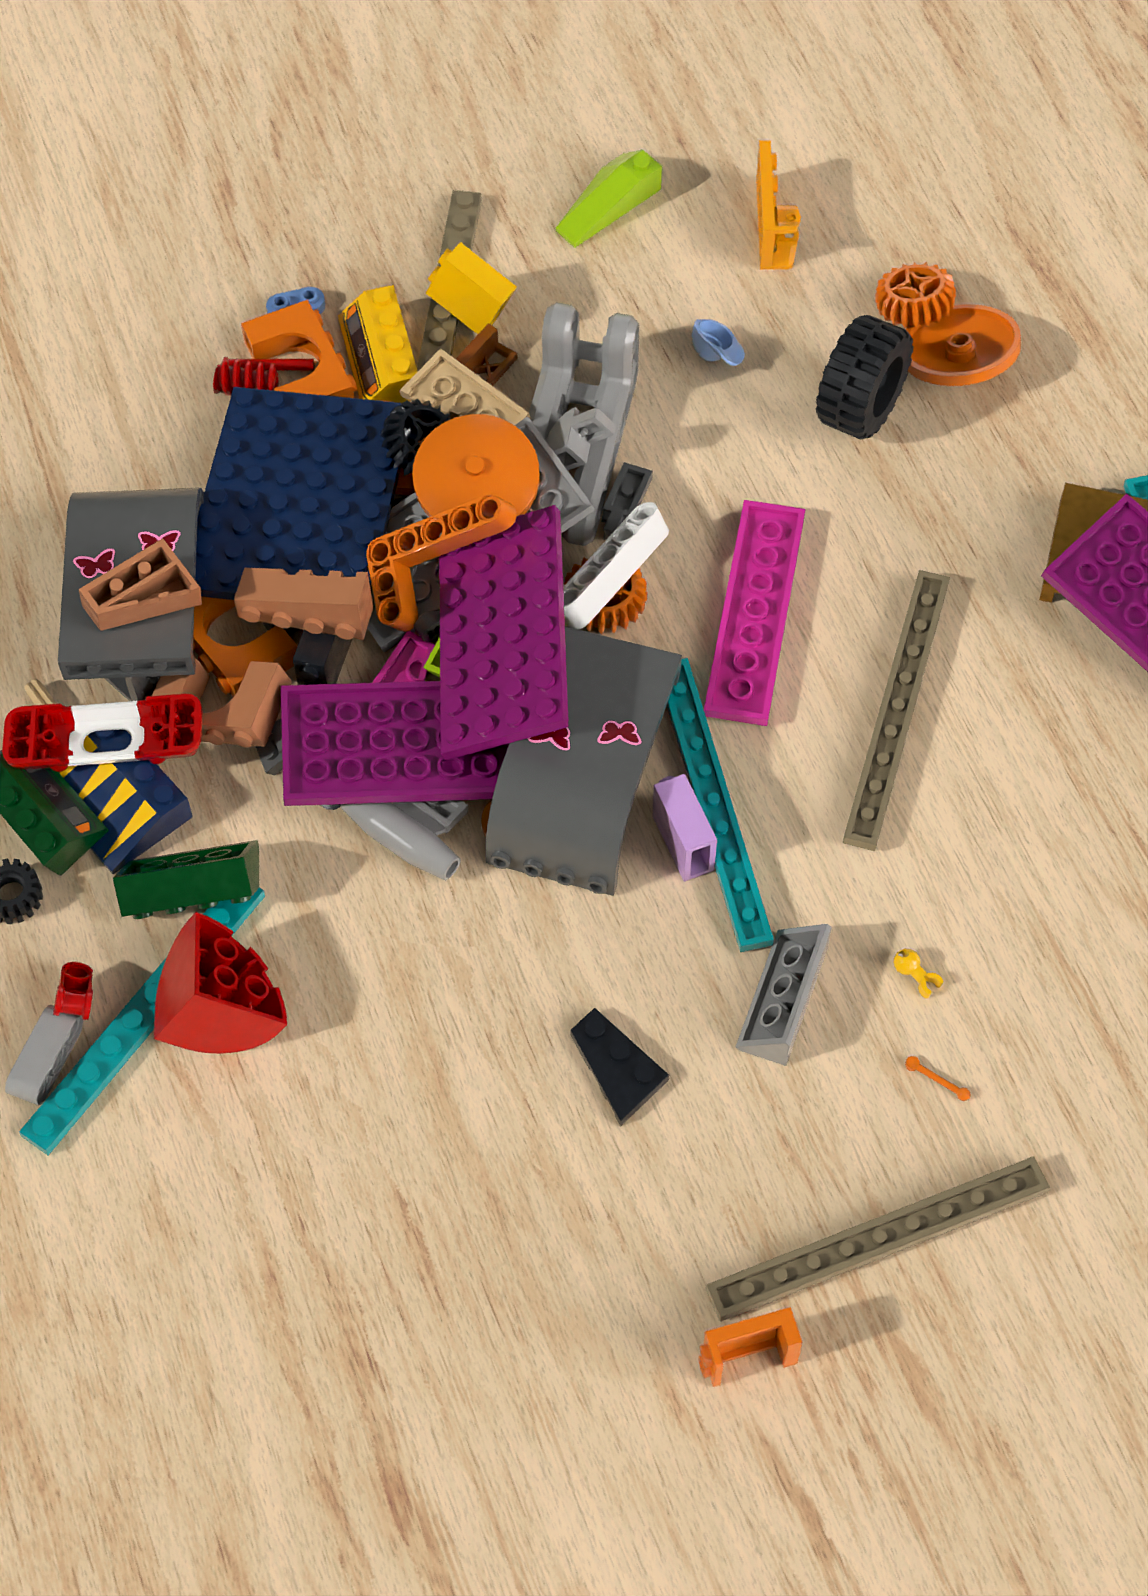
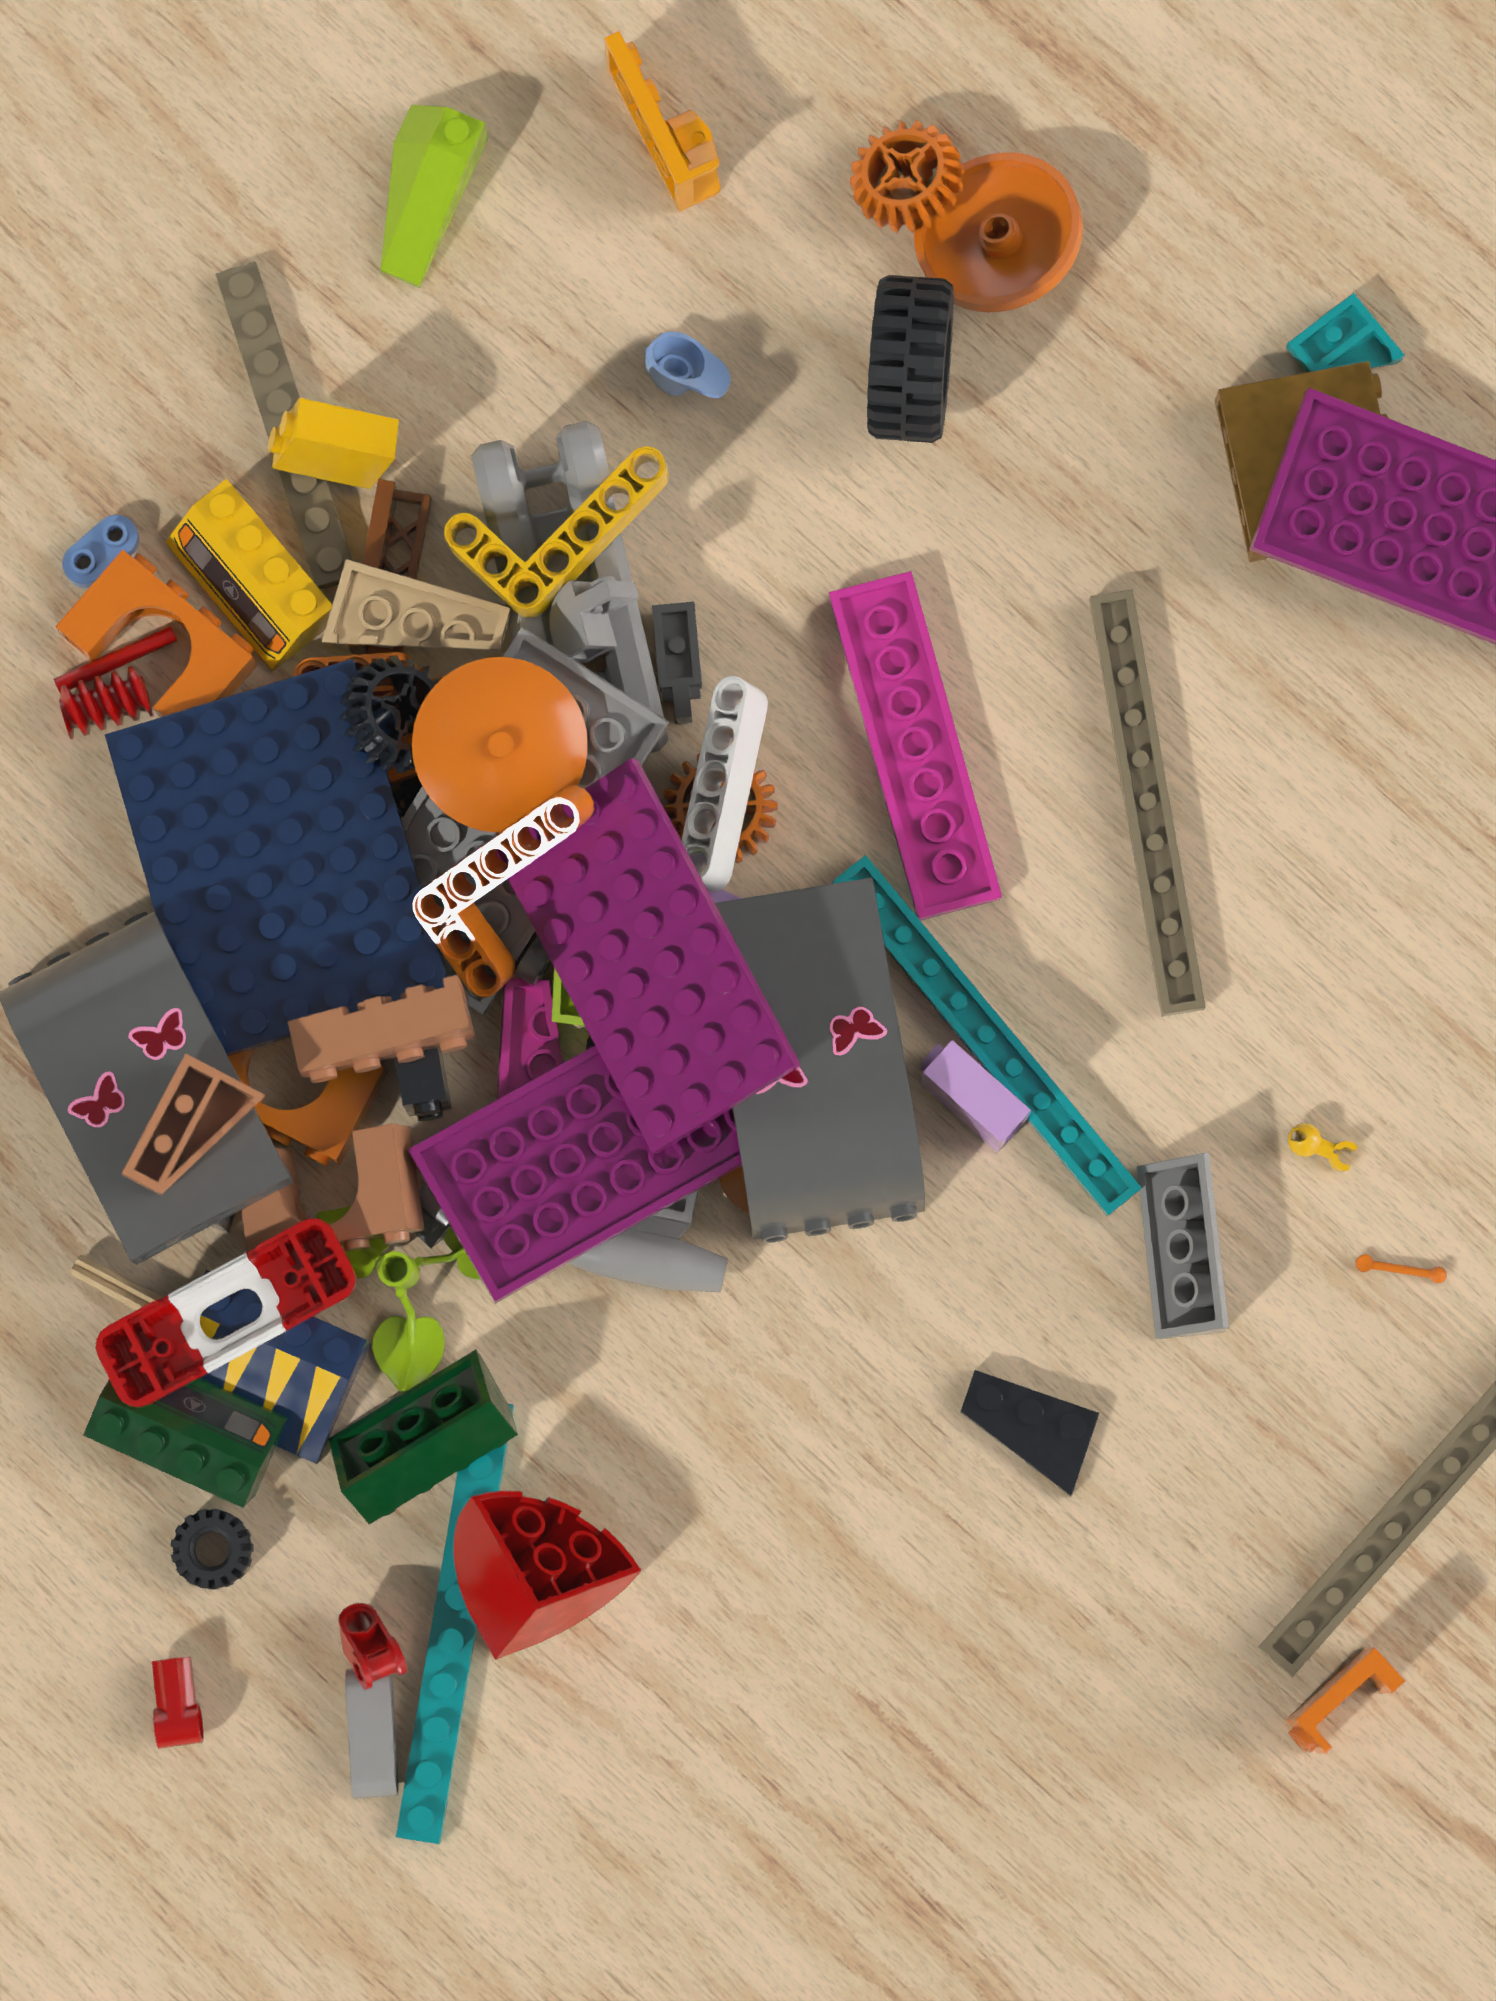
camera: 25 degrees left, 20 degrees up
(213, 823) = (404, 1347): none -> lime plant
(589, 389) = (563, 540): none -> yellow beam

